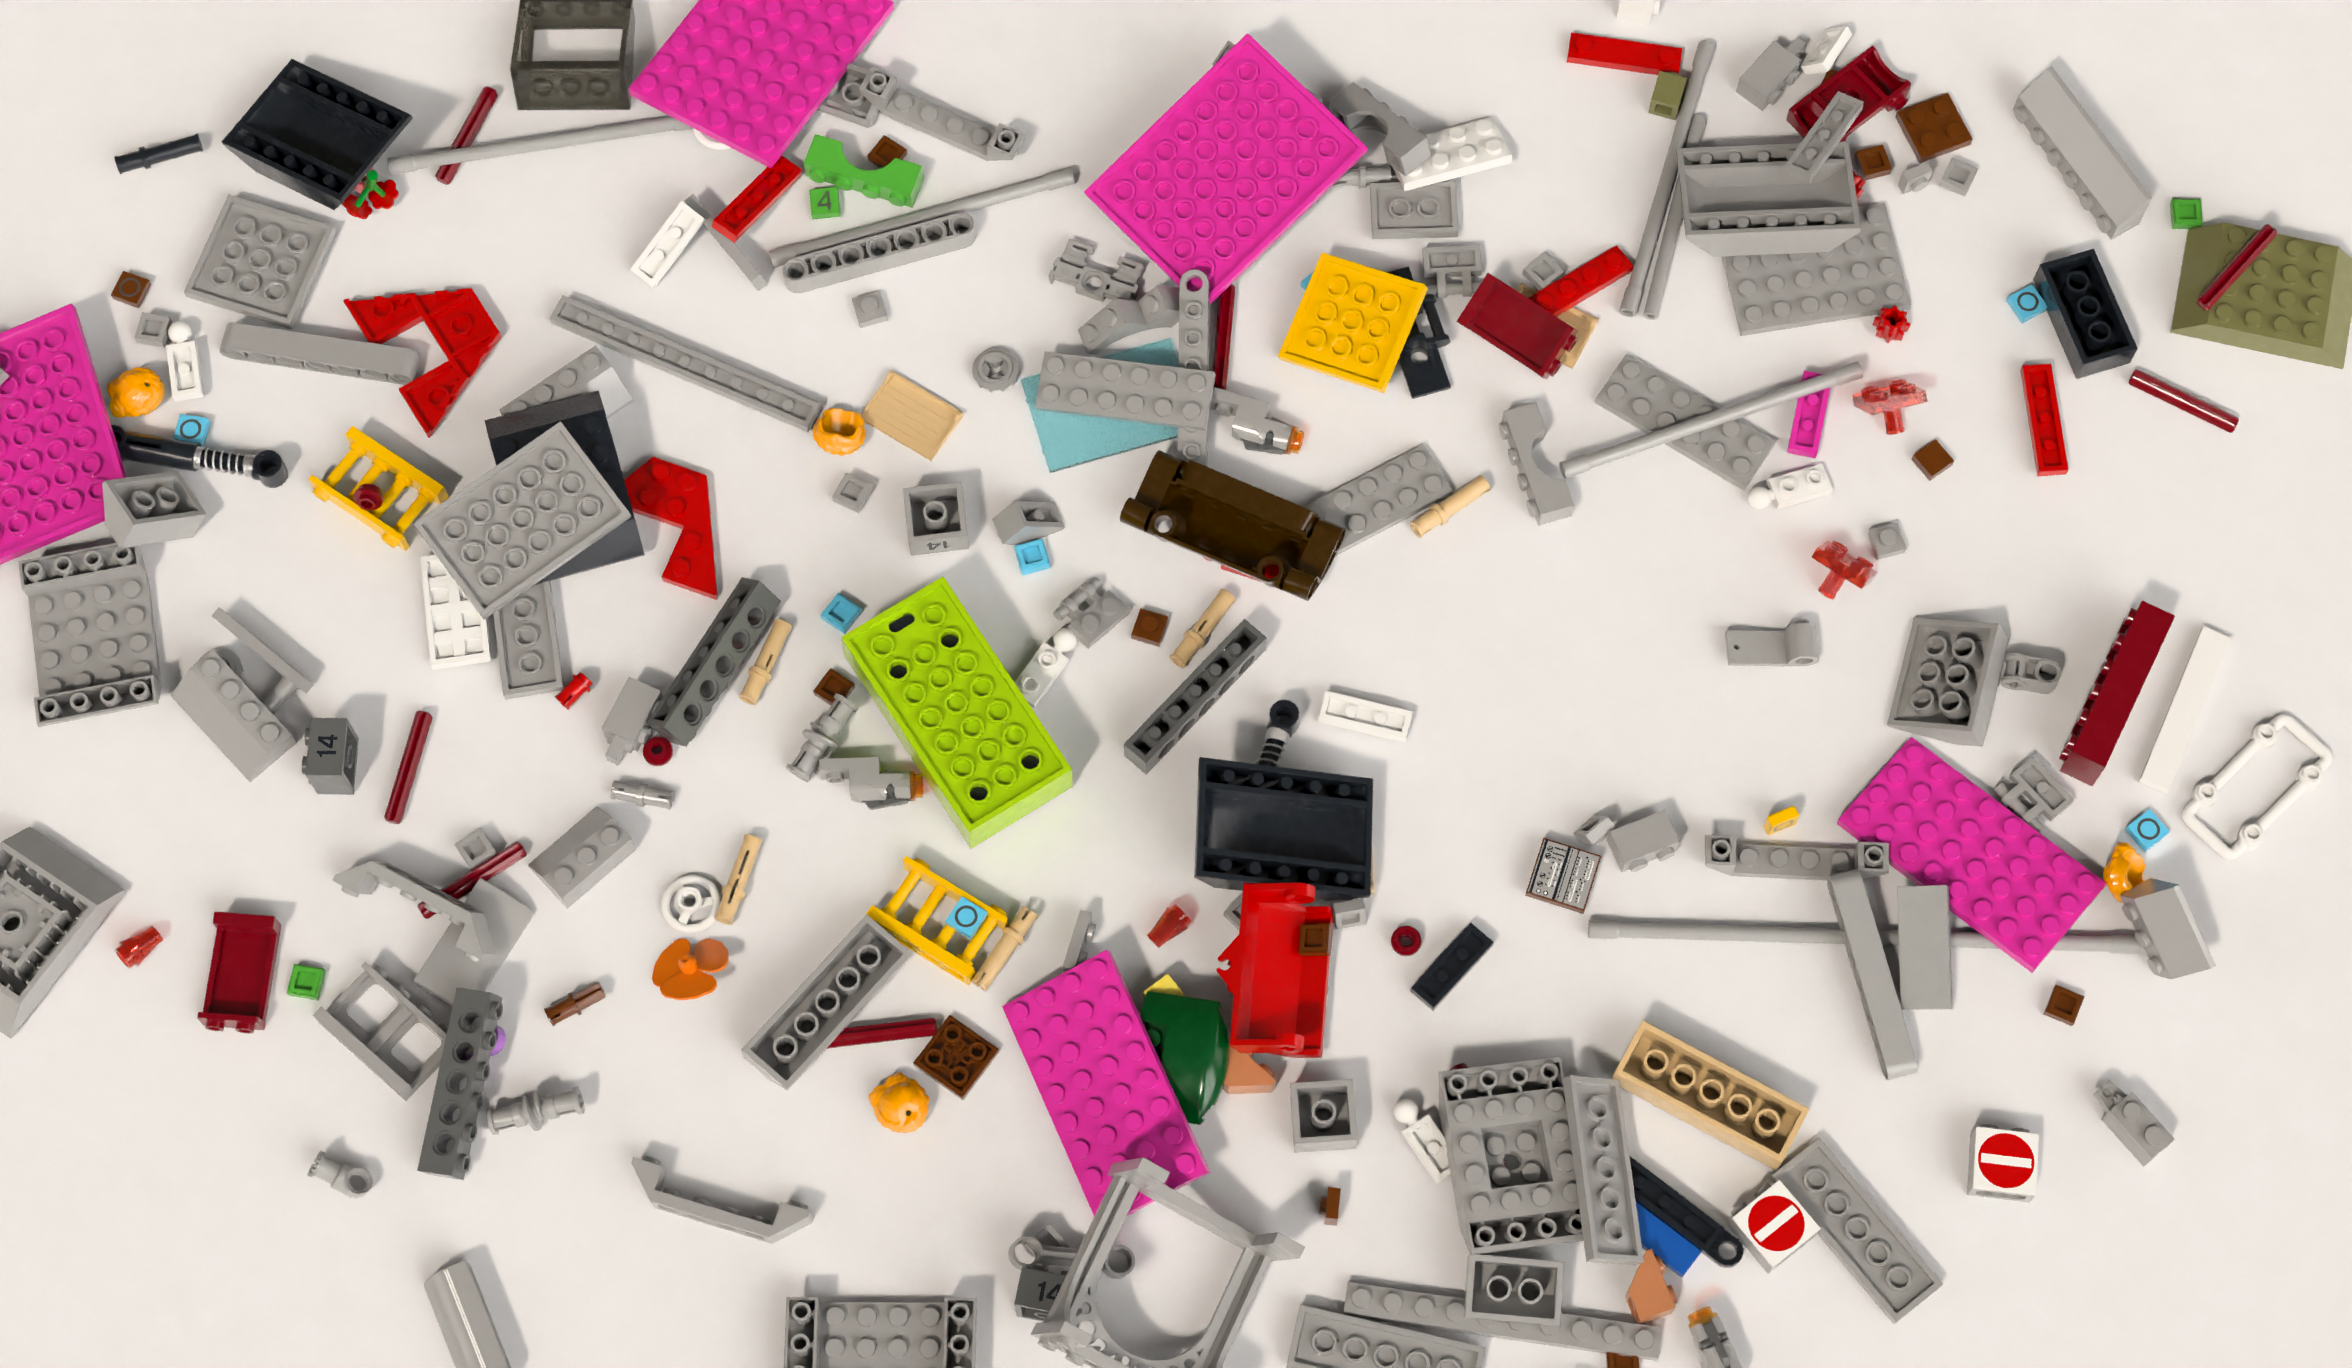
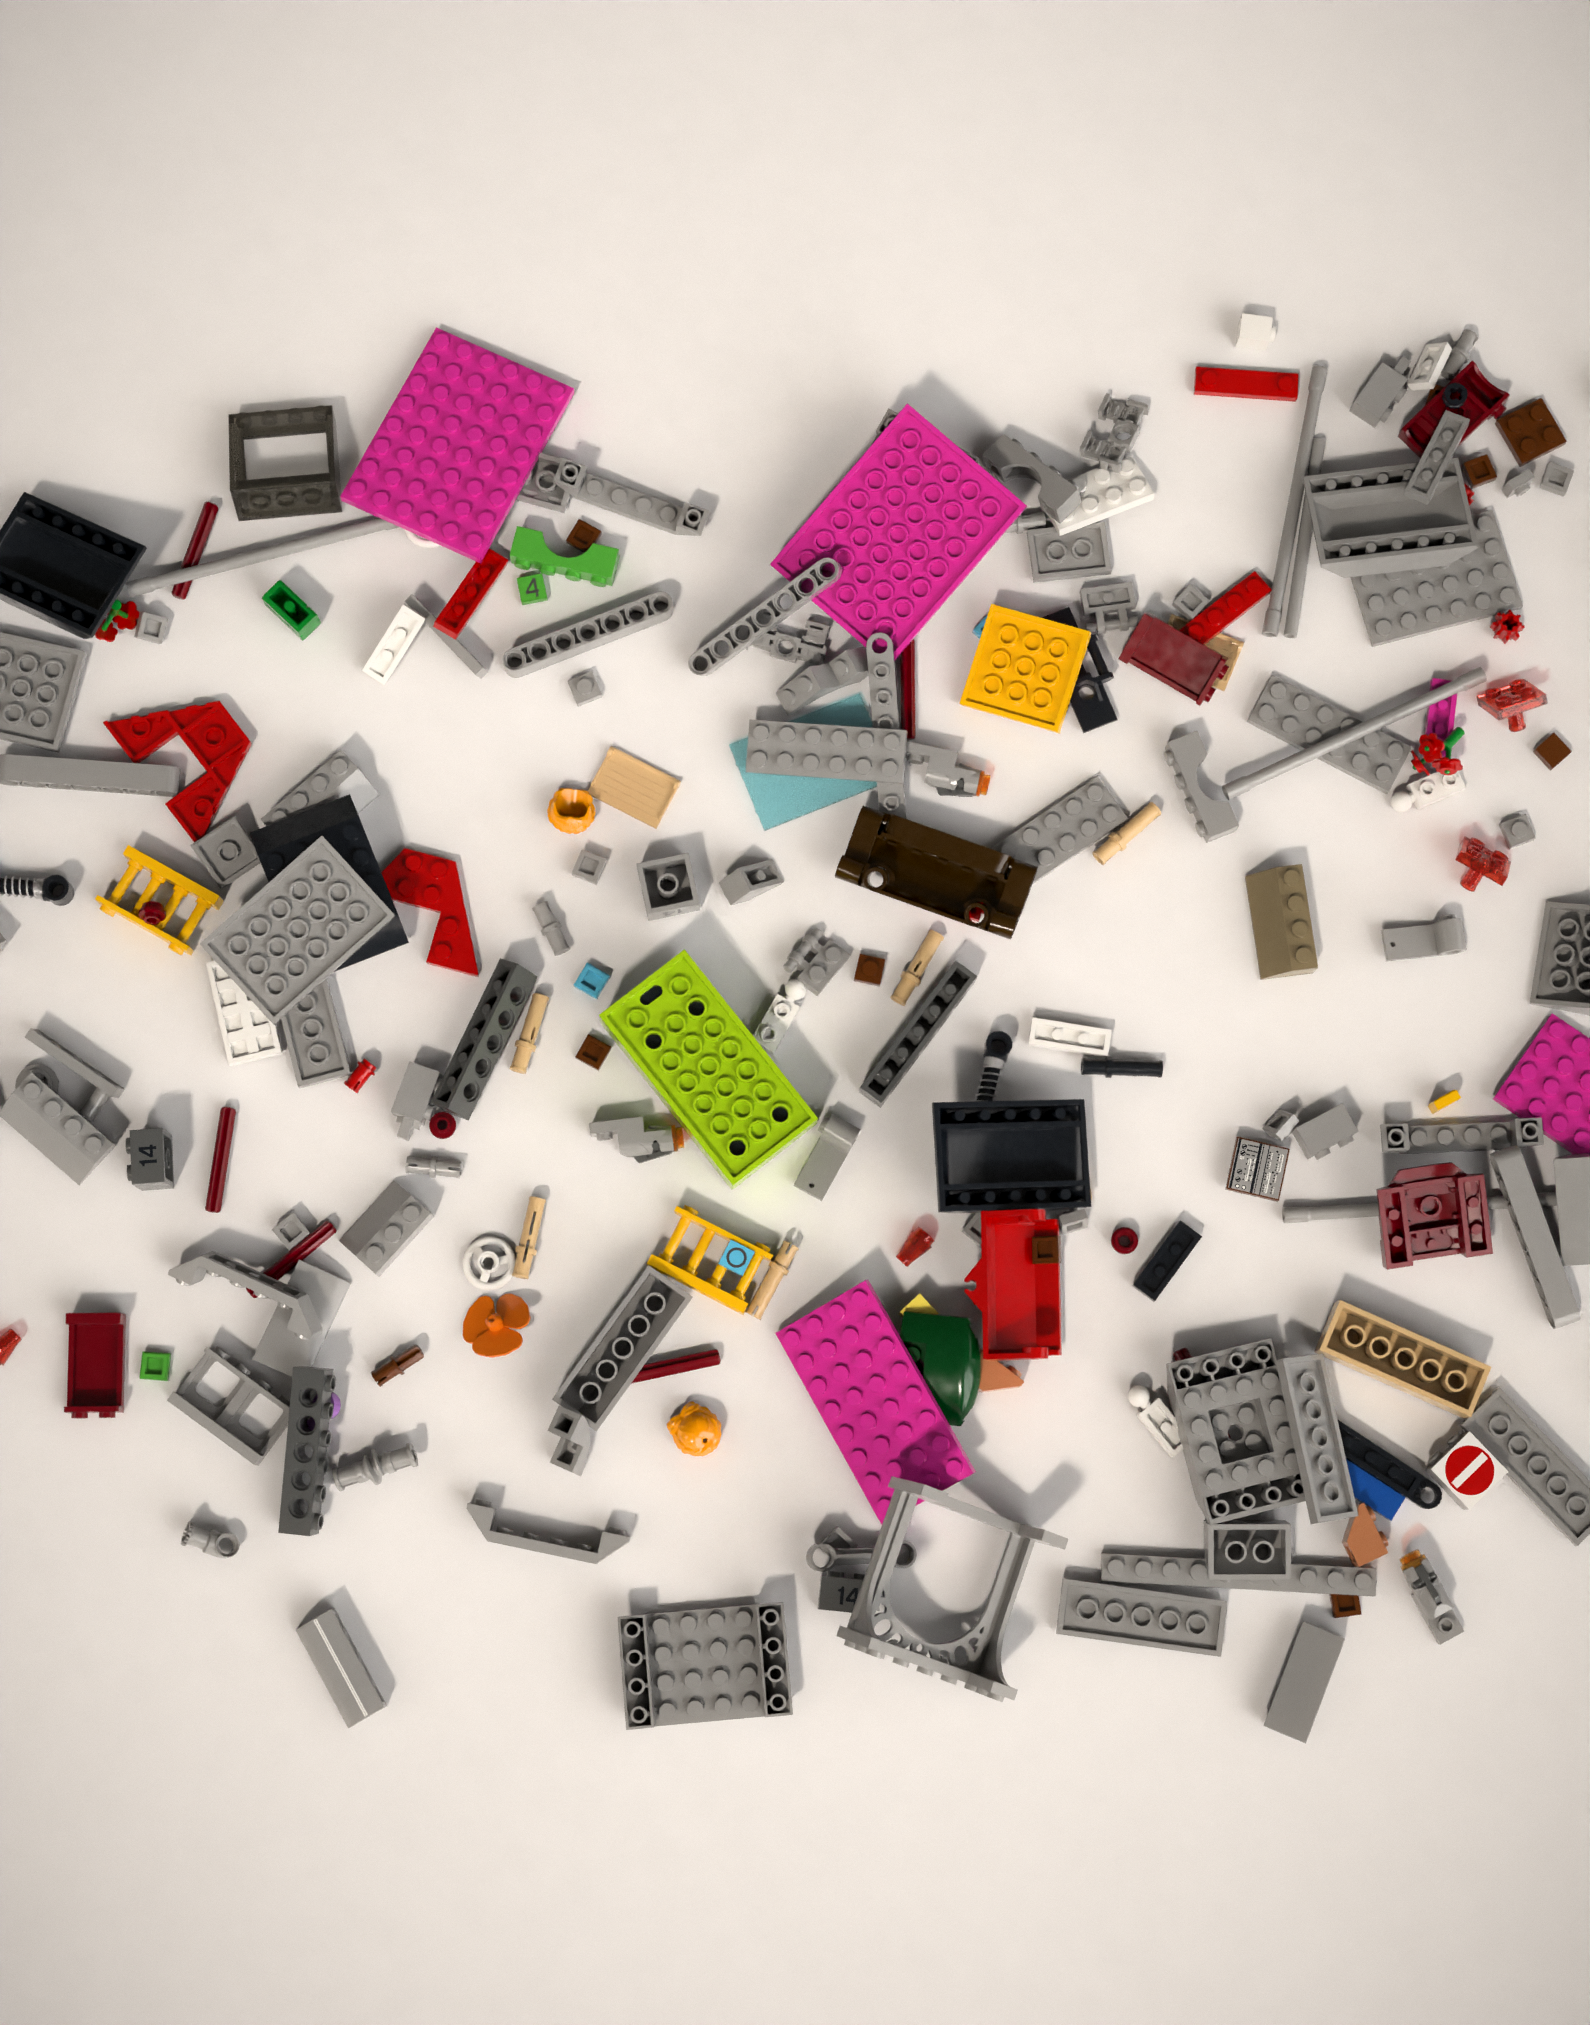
camera: 10 degrees left, 10 degrees up
(408, 208) = (150, 627): none -> light grey plate
(458, 444) = (226, 852): none -> light grey tile
(561, 201) = (291, 610): none -> green brick
(685, 363) = (422, 756): light grey plate -> none
(762, 1102) = (574, 1441): none -> light grey brick
(802, 553) = (551, 928): none -> light grey pin
(821, 737) = (588, 1101): light grey piece -> none
(956, 1057) = (739, 1382): reddish brown tile -> none
(994, 358) = (704, 726): light grey gear -> none
(1032, 556) = (757, 912): medium azure tile -> none
(1048, 182) = (512, 639): light grey piece -> none
(1058, 245) = (752, 620): none -> light grey beam
(1081, 822) = (827, 1156): none -> light grey door
(1083, 932) = (840, 1260): light grey plate -> none
(1323, 1115) = (1068, 1408): light grey brick -> none
(1330, 1206) = (1081, 1487): reddish brown plate -> none
(1420, 753) = (1121, 1067): none -> black pin
(1487, 80) = (1126, 420): none -> light grey piece
(1613, 614) = (1281, 922): none -> dark tan slope
(1667, 95) = (1289, 421): olive brick -> none
(1756, 938) = (1433, 1215): none -> dark red slope
(1797, 439) = (1431, 750): none -> red plant
(1849, 86) = (1456, 403): none -> black bush
(1861, 41) = (1459, 354): none -> light grey pin

